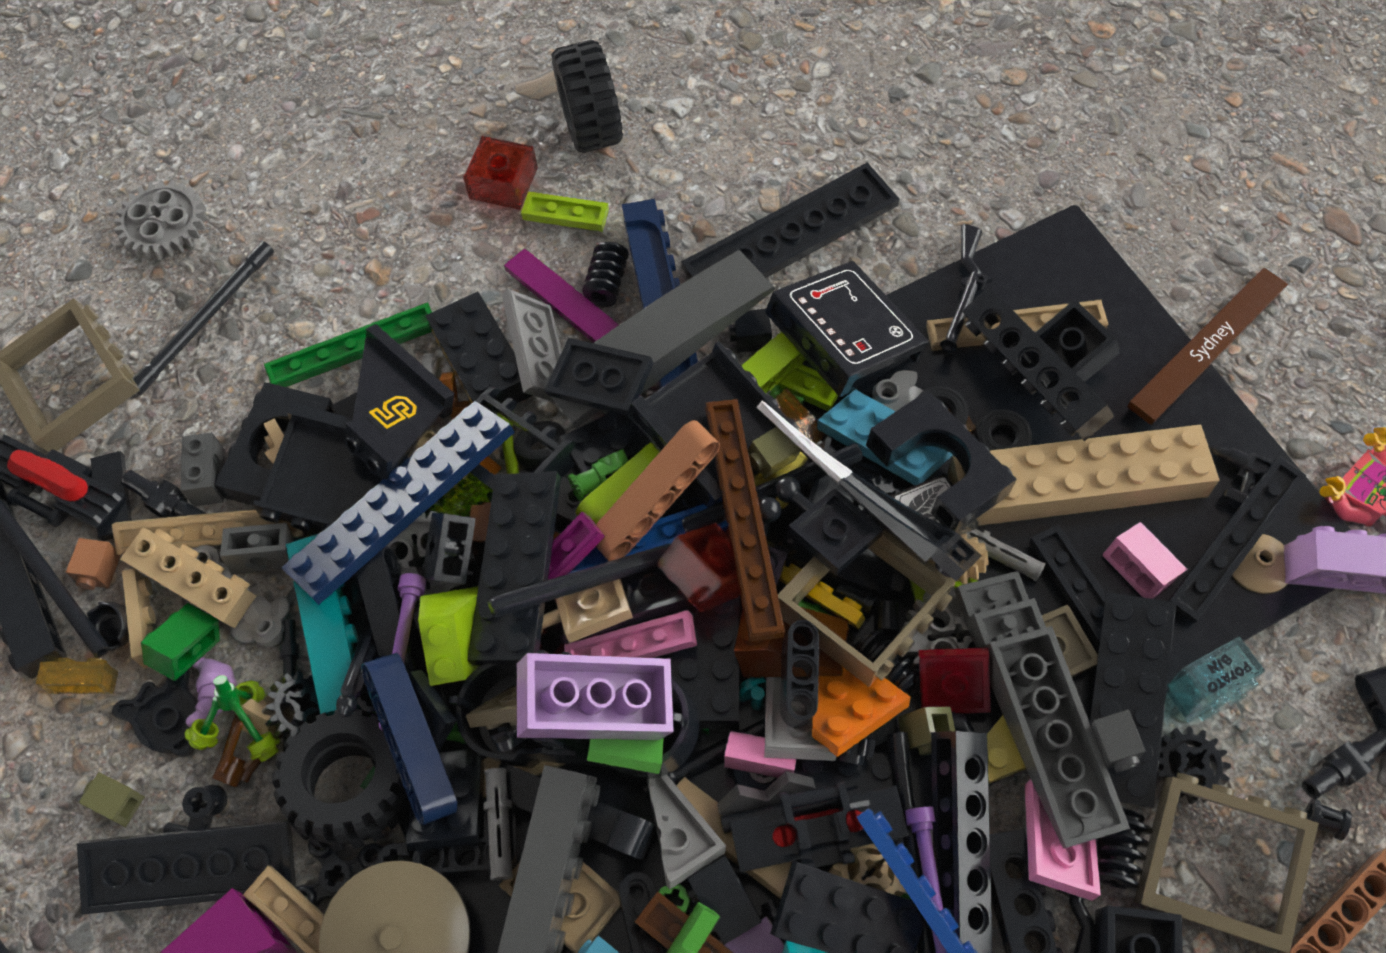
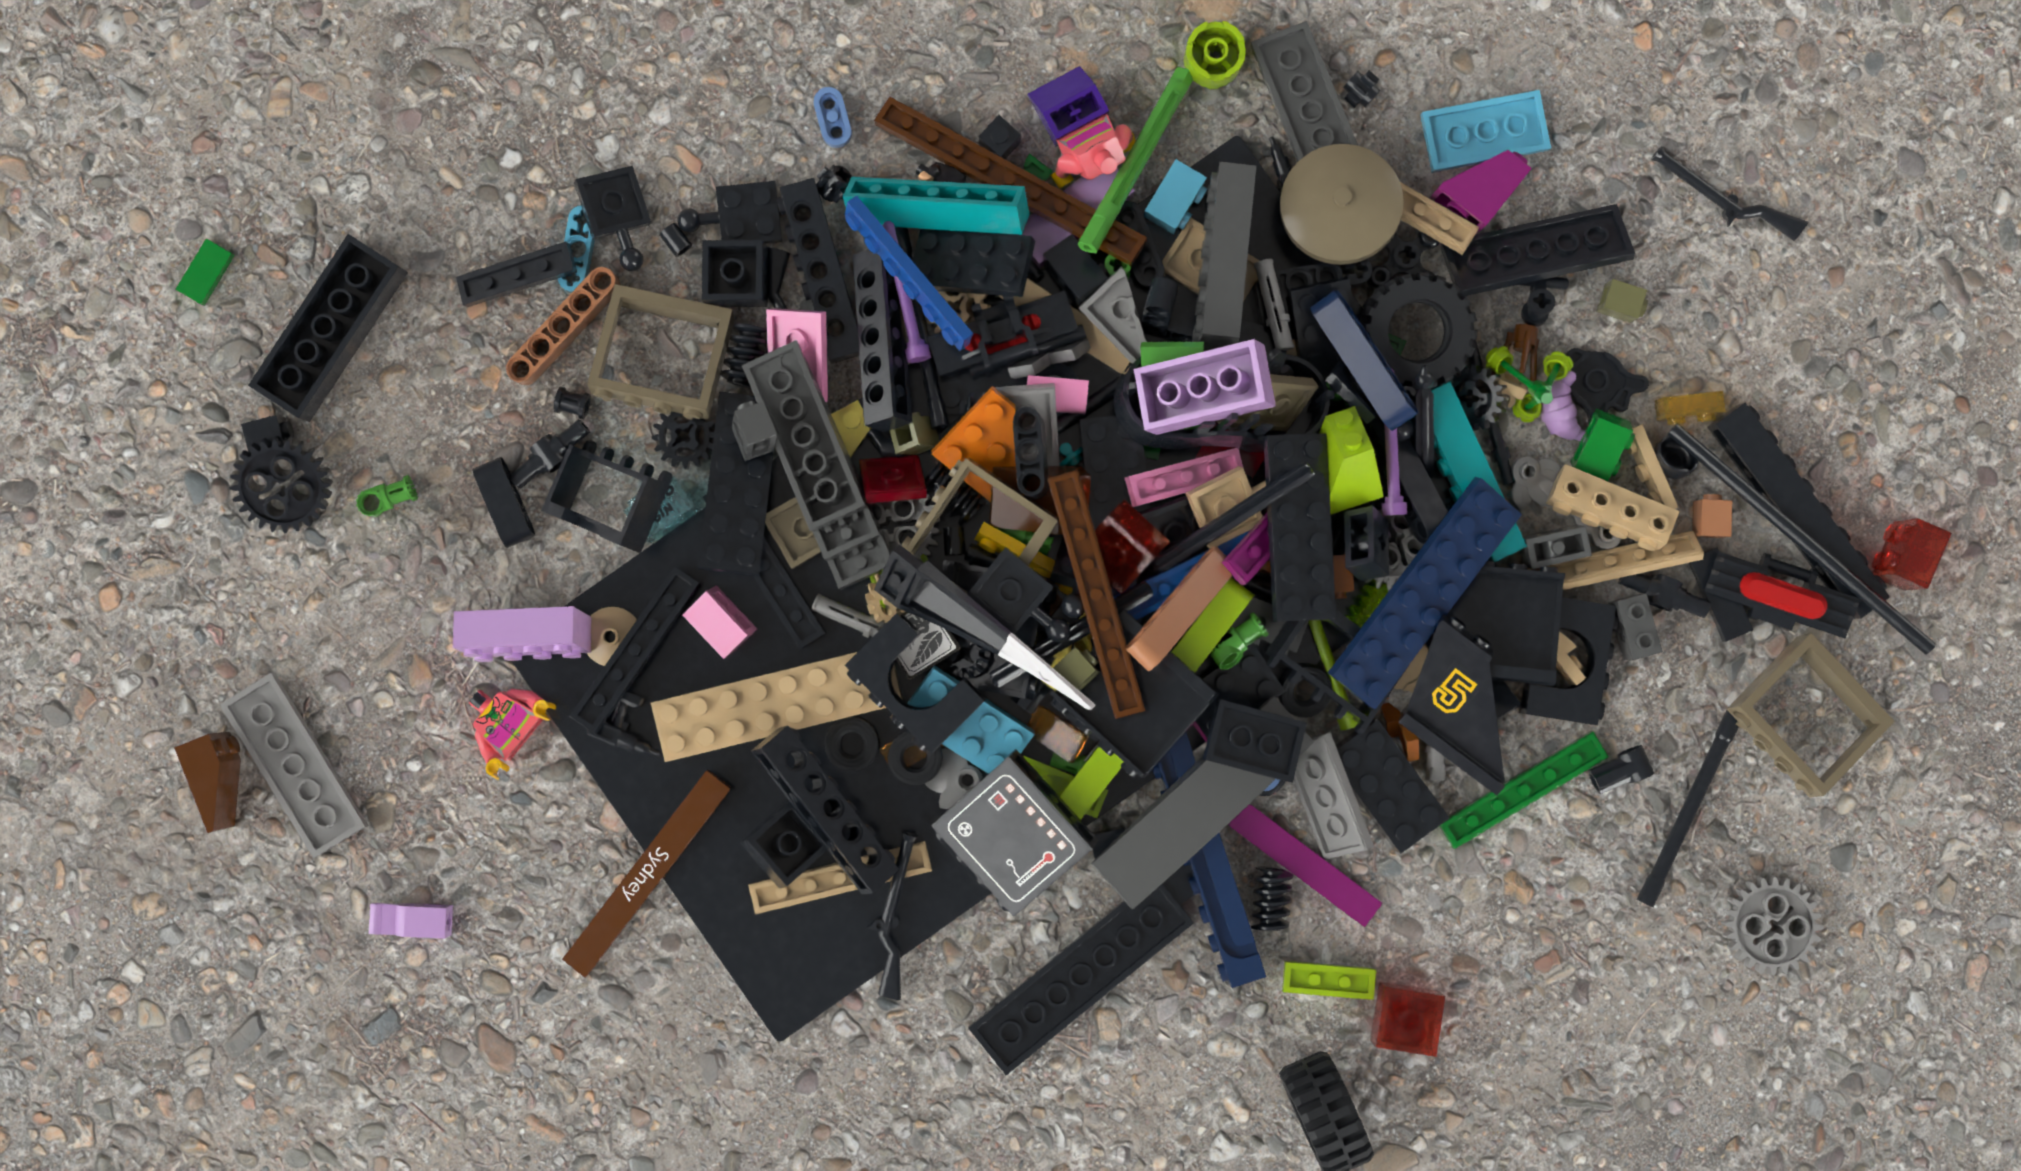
camera: 170 degrees right, 25 degrees up
(246, 352) = (1629, 766): none -> black piece
(1332, 699) = (641, 513): none -> black hinge

